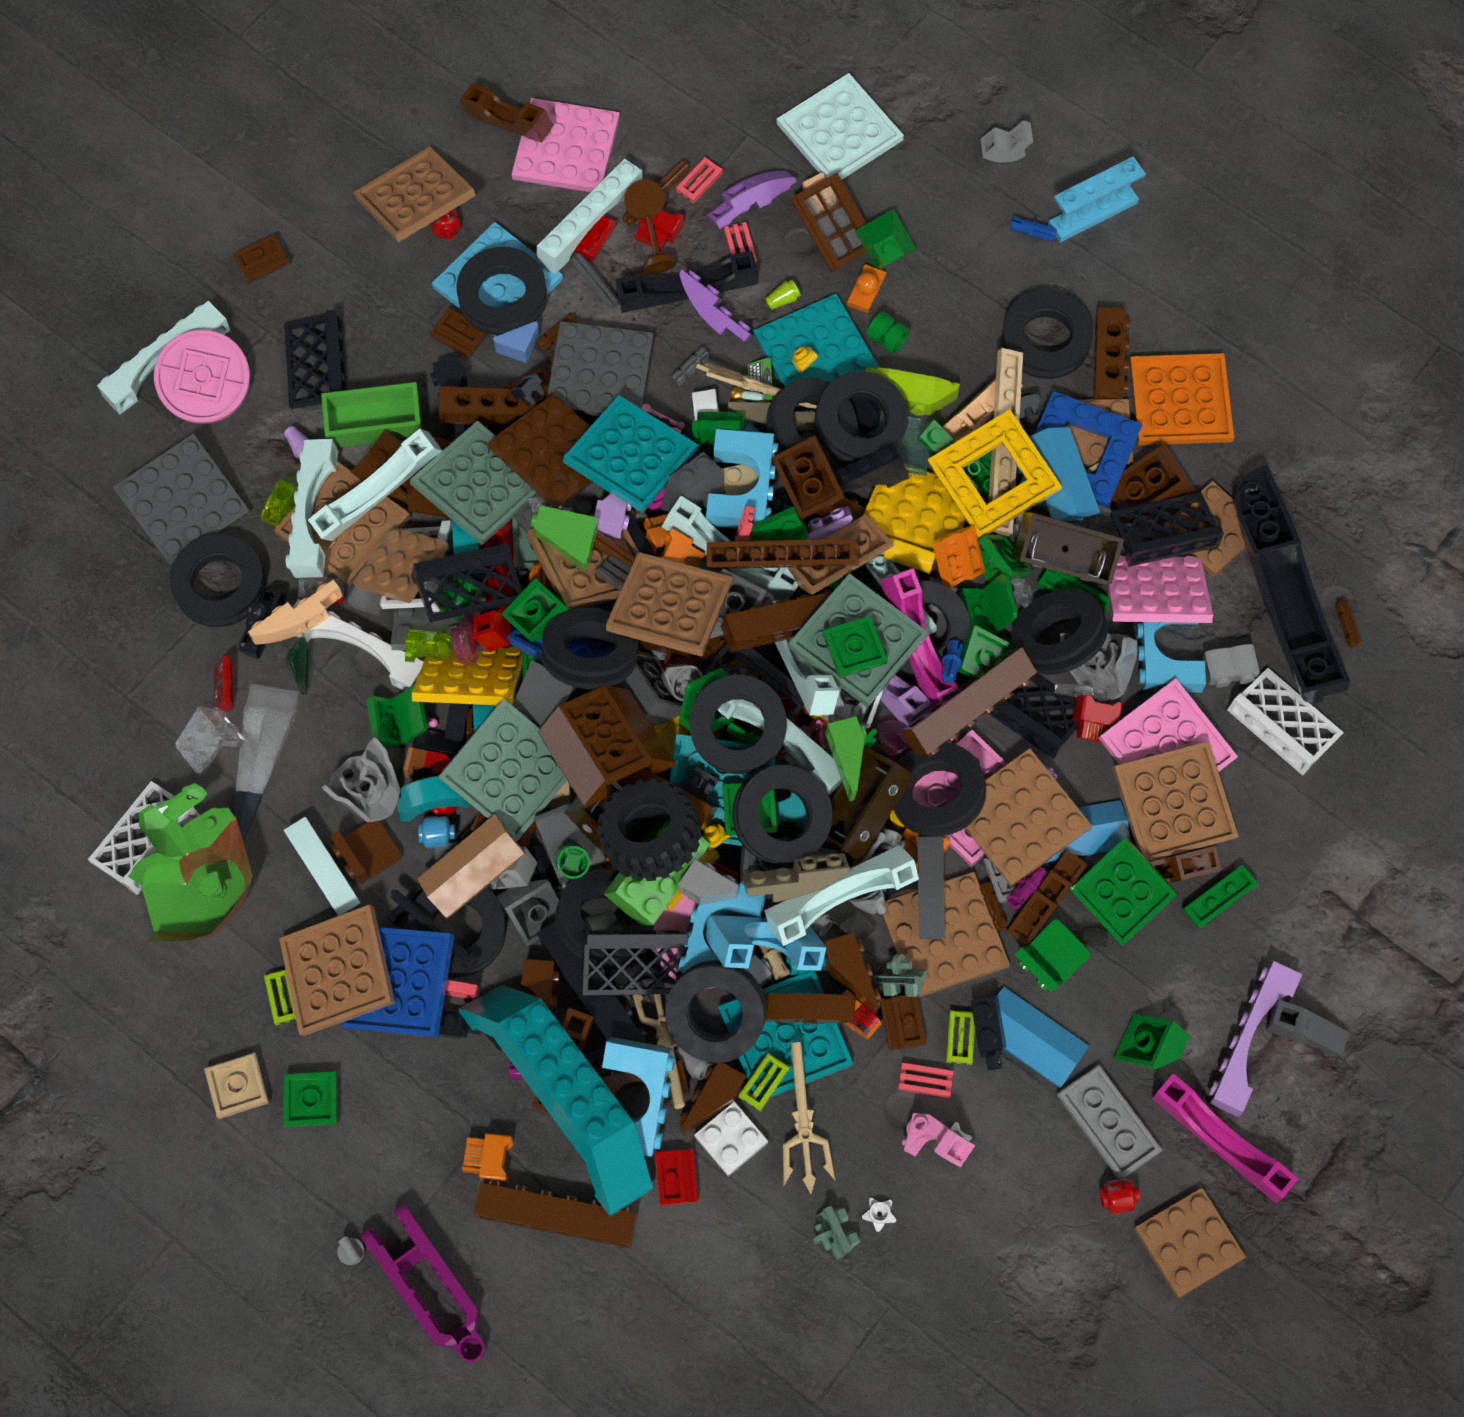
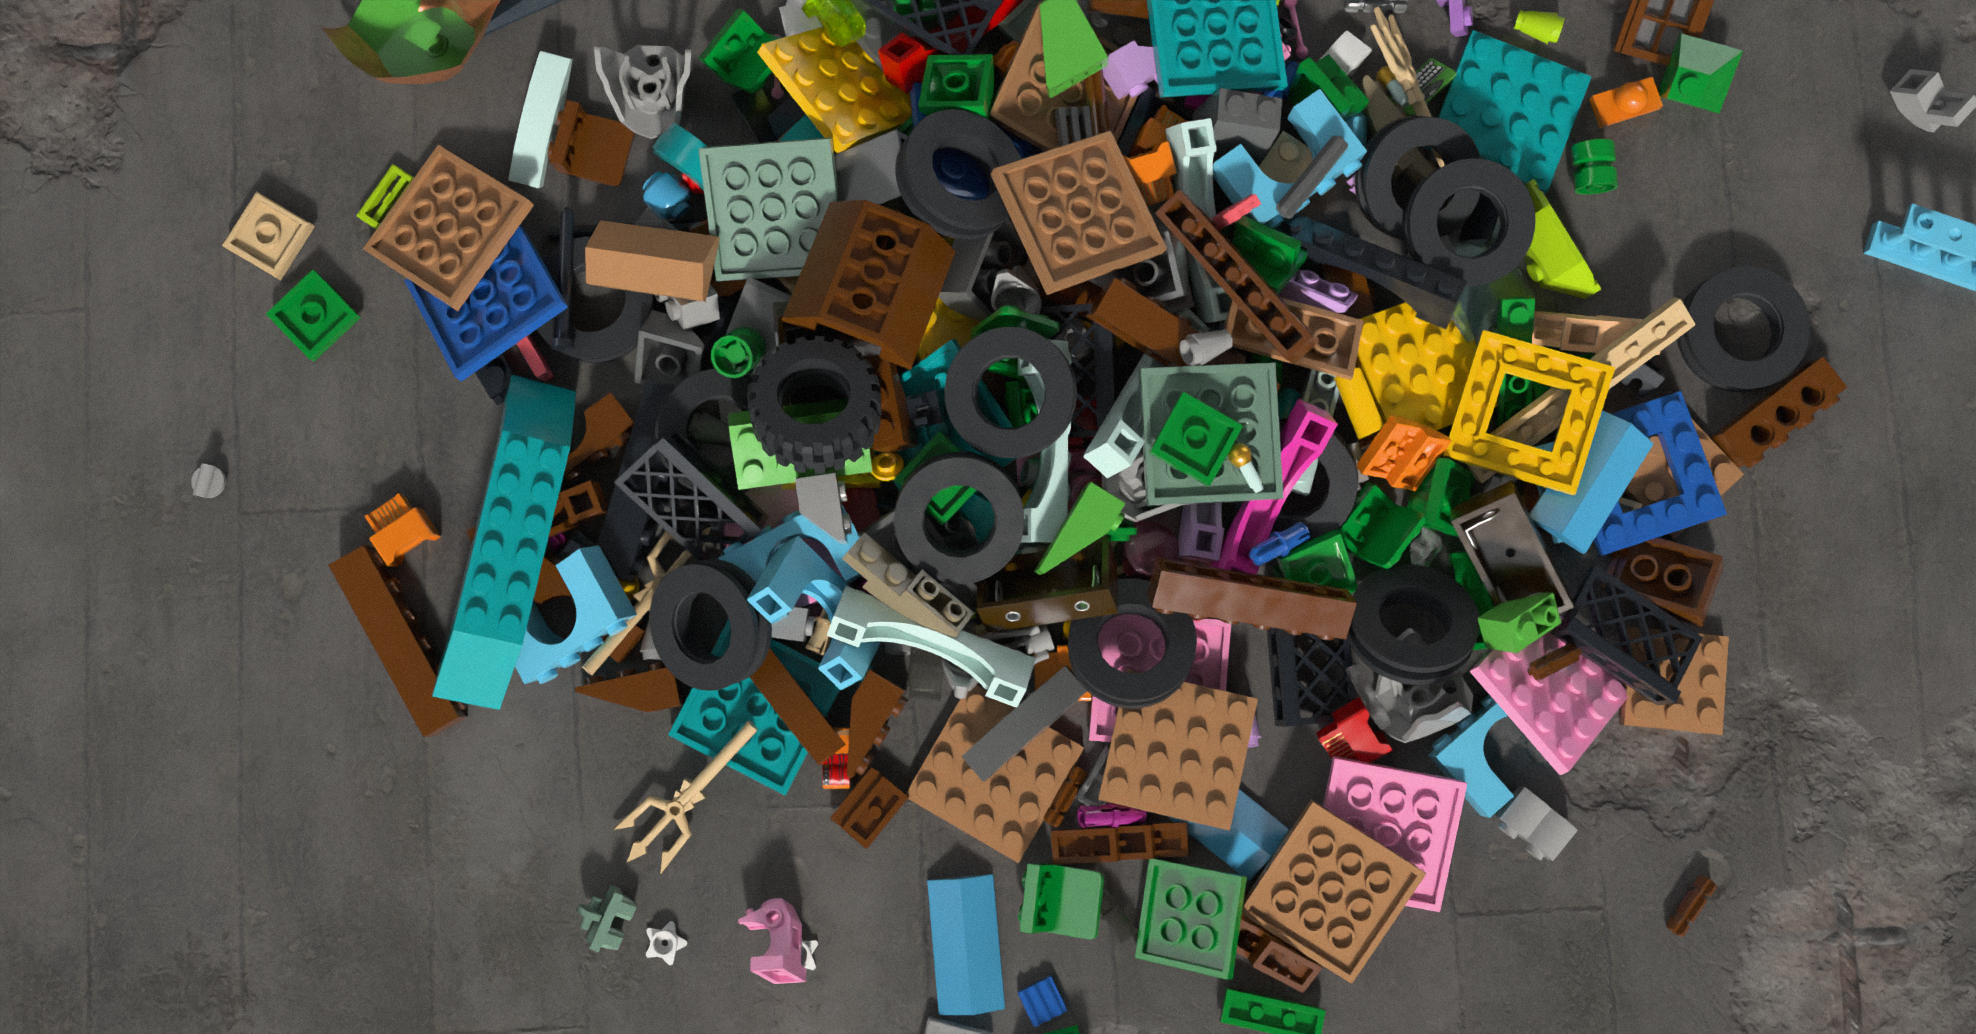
camera: 45 degrees right, 15 degrees up
(424, 763) = (727, 119): leg -> none
(464, 1339) = (214, 658): magenta piece -> none
(465, 646) = (861, 49): clear pink piece -> none
(676, 1177) = (532, 722): red plate -> none
(731, 1139) = (614, 740): white plate -> none
(752, 1100) = (719, 724): lime tile -> none
(762, 472) = (1312, 176): none -> dark grey axle
(803, 358) = (1486, 107): yellow plate -> none
(806, 602) = (1205, 346): none -> light grey cone
(808, 477) = (1349, 228): reddish brown slope -> none
(887, 633) = (1241, 458): none -> piece
(901, 972) = (909, 767): sand green hips -> none
(925, 1070) = (846, 902): coral tile -> none
(959, 1059) = (881, 892): lime tile -> none
(989, 1030) = (932, 900): black hinge -> none
(1033, 228) = (1853, 213): blue axle -> none
(1103, 1021) = (1042, 1001): none -> blue piece
(1107, 573) = (1519, 622): none -> bright green slope
(1145, 574) = (1554, 661): none -> reddish brown axle
(1181, 399) = (1795, 528): orange plate -> none
(1274, 732) = (1497, 931): white fence -> none
(1287, 588) = (1675, 814): black slope -> none

